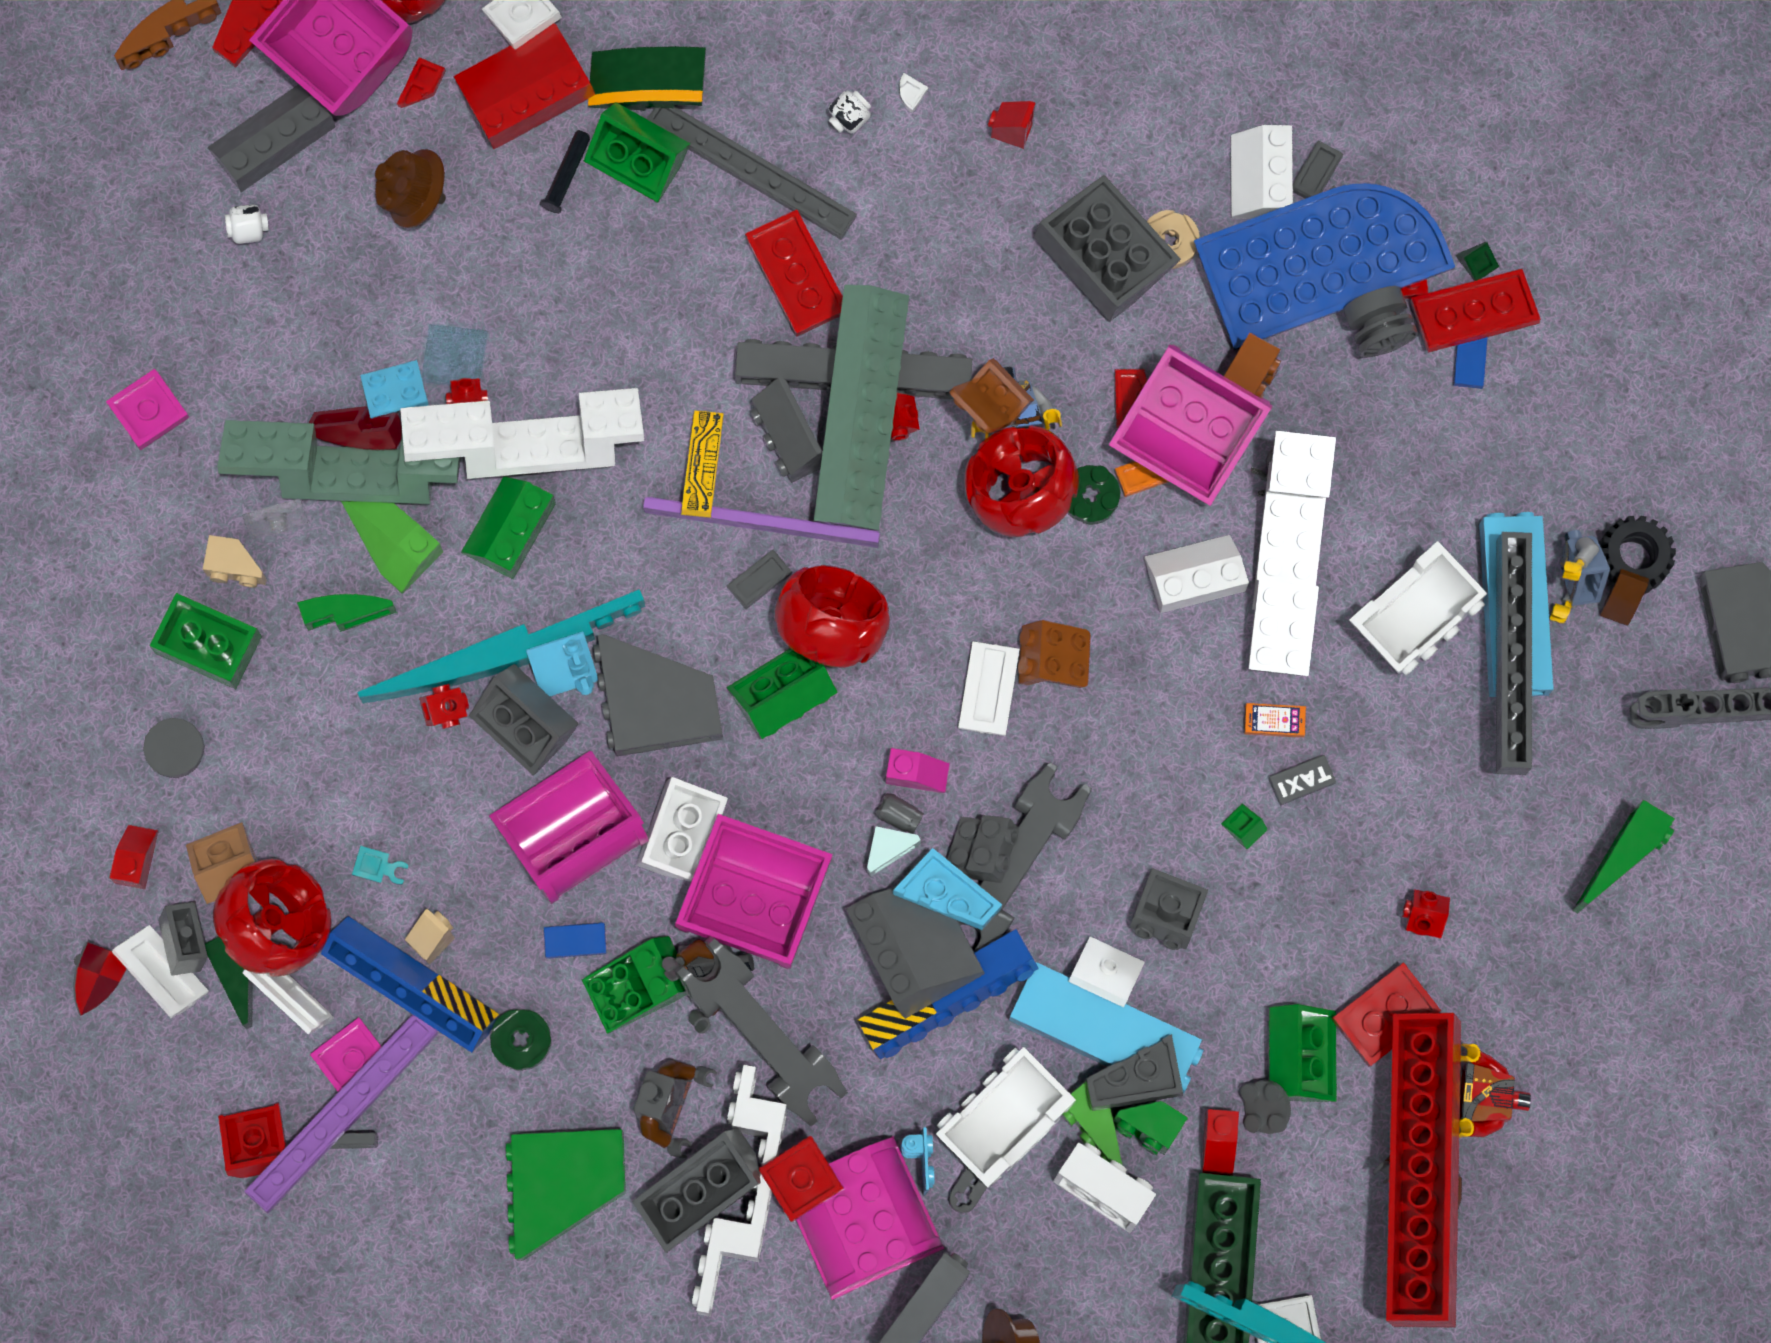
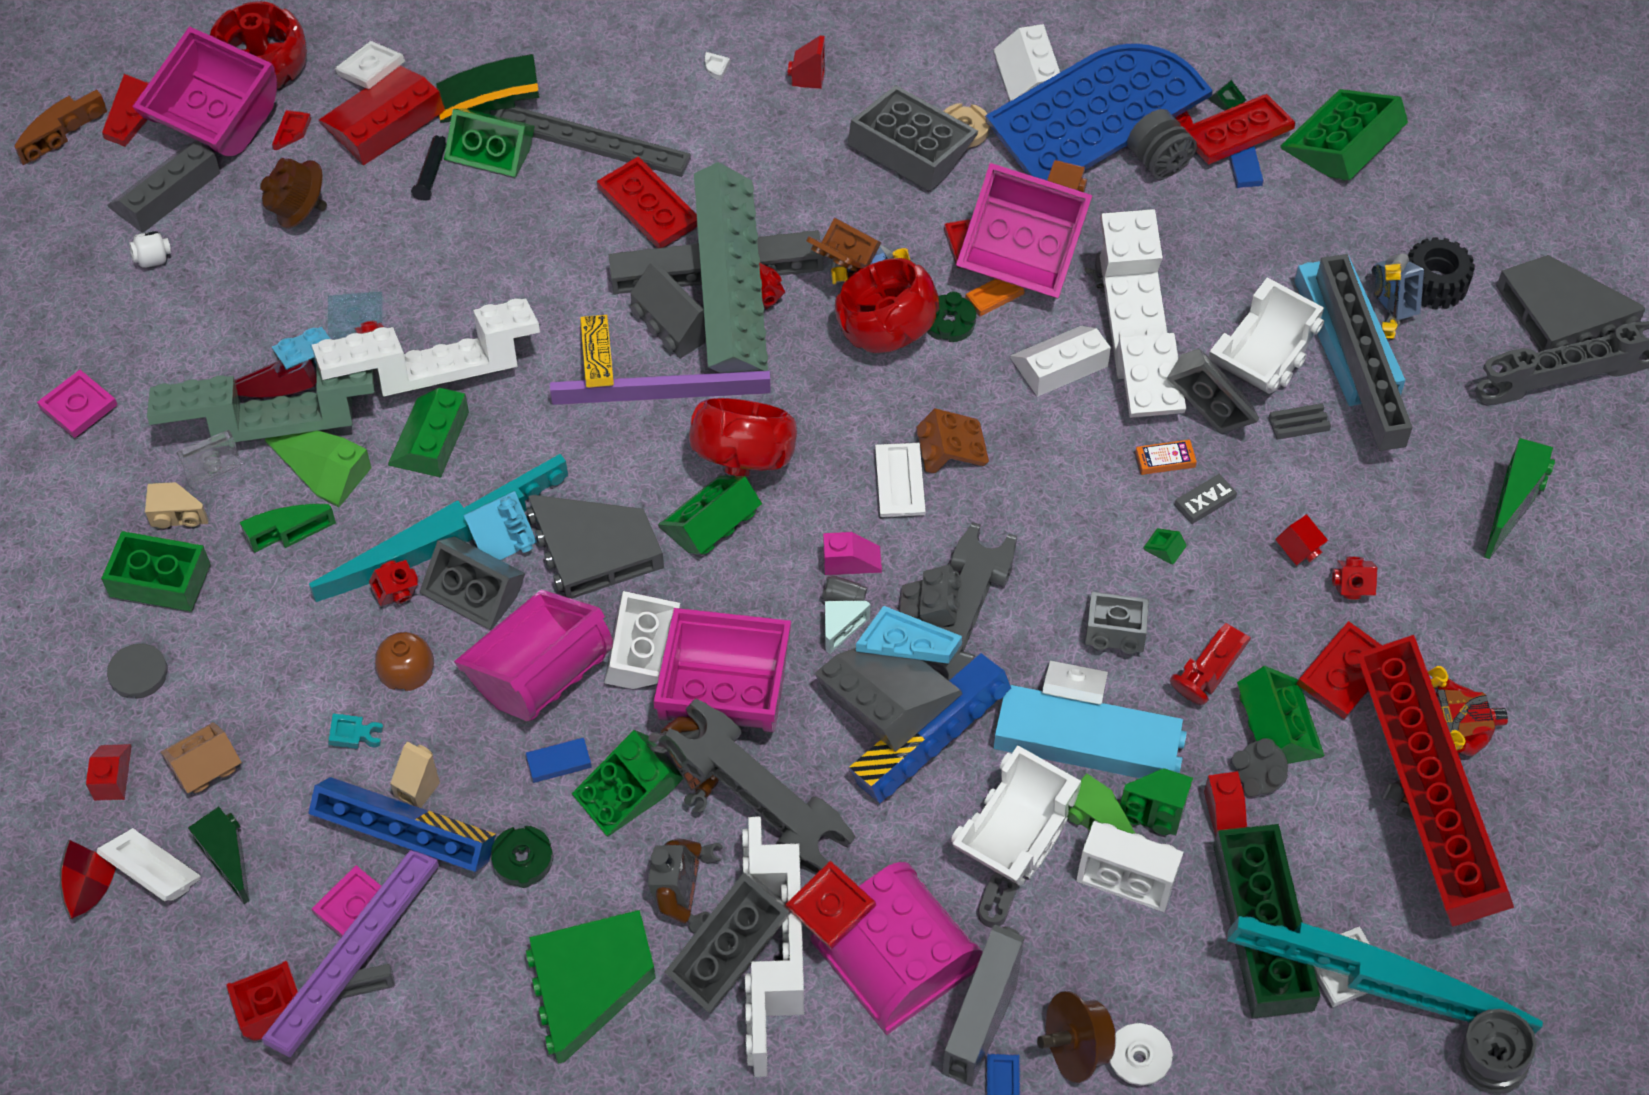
camera: 10 degrees left, 20 degrees down
(182, 938) = (167, 826): dark grey brick -> none
(249, 936) = (272, 787): red wheel -> none
(292, 1000) = (283, 857): white piece -> none
(441, 797) = (404, 661): none -> dark orange cylinder
(759, 579) = (667, 435): dark grey tile -> none
(849, 112) = (667, 83): white head -> none
(920, 1147) = (937, 870): medium azure hinge -> none
(1139, 1079) = (1133, 759): dark grey wing -> none
(1250, 979) = (1211, 665): none -> red piece
(1317, 170) = (1073, 53): dark grey tile -> none
(1341, 664) = (1211, 392): none -> dark grey slope
(1385, 858) = (1302, 540): none -> red brick
(1450, 695) = (1298, 417): none -> dark grey tile
(1595, 340) = (1347, 132): none -> green slope
(1624, 597) = (1441, 302): reddish brown slope -> none

